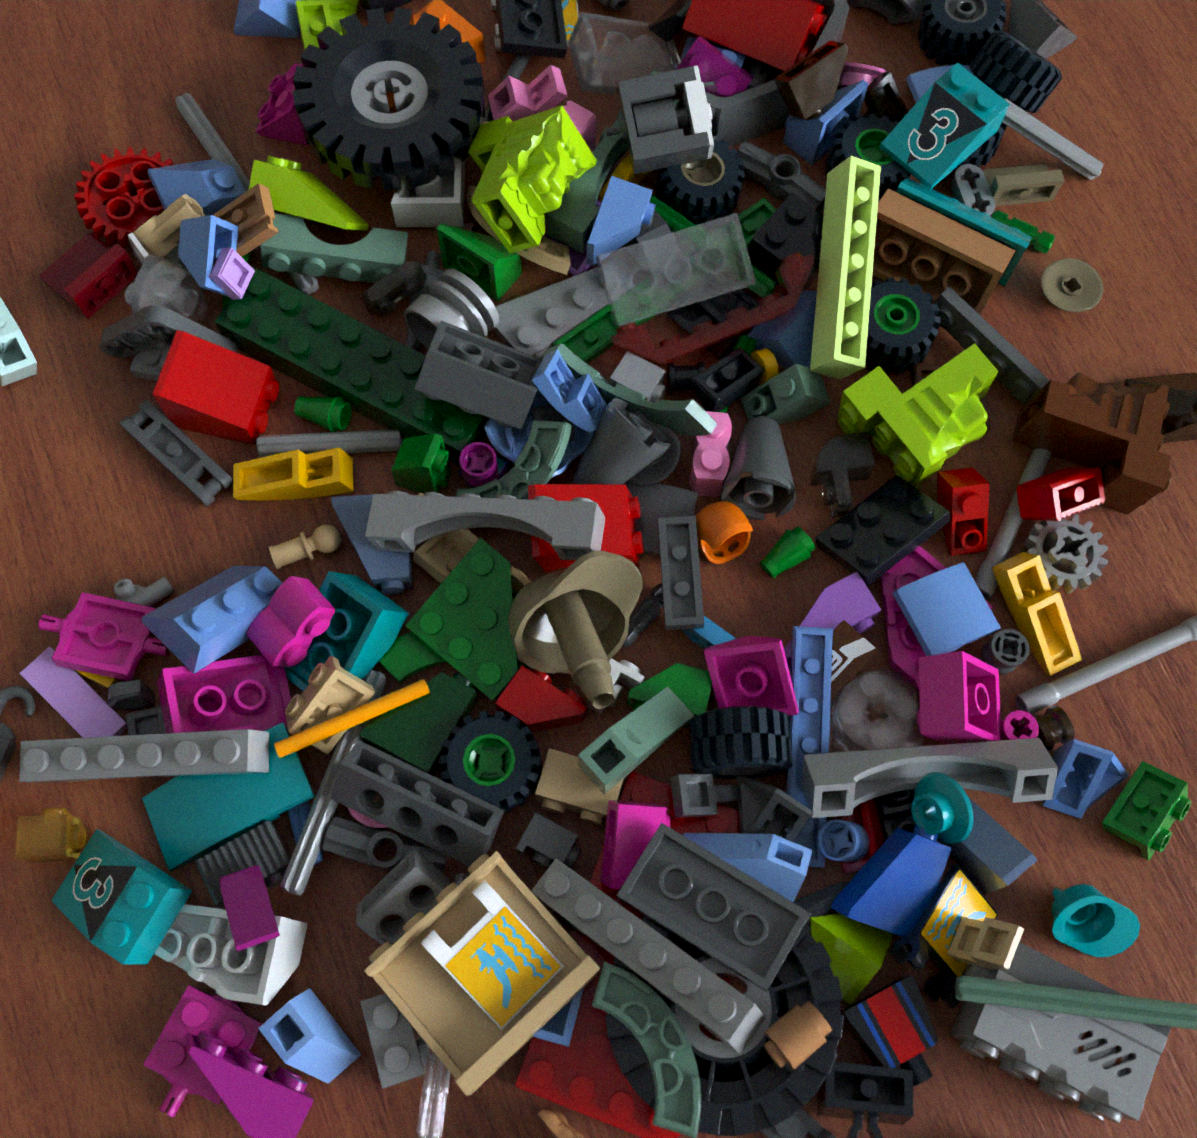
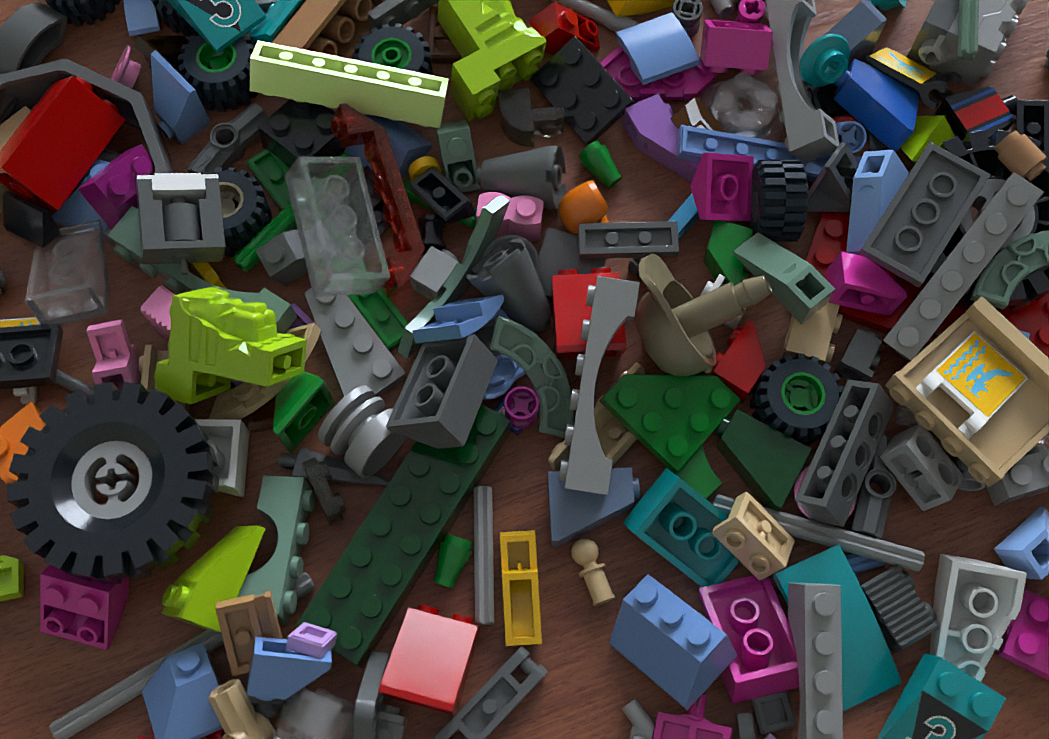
camera: 85 degrees left, 0 degrees up
(248, 907) = (951, 587): magenta slope -> none
(291, 622) = (682, 568): dark pink brick -> none
(351, 718) = (771, 511): light orange bar -> none
(422, 464) = (516, 459): green slope -> none
(619, 217) = (282, 269): medium blue slope -> none
(697, 796) = (820, 237): dark grey plate -> none
(813, 80) = (150, 89): dark brown slope -> none
(985, 943) = (927, 39): tan slope -> none

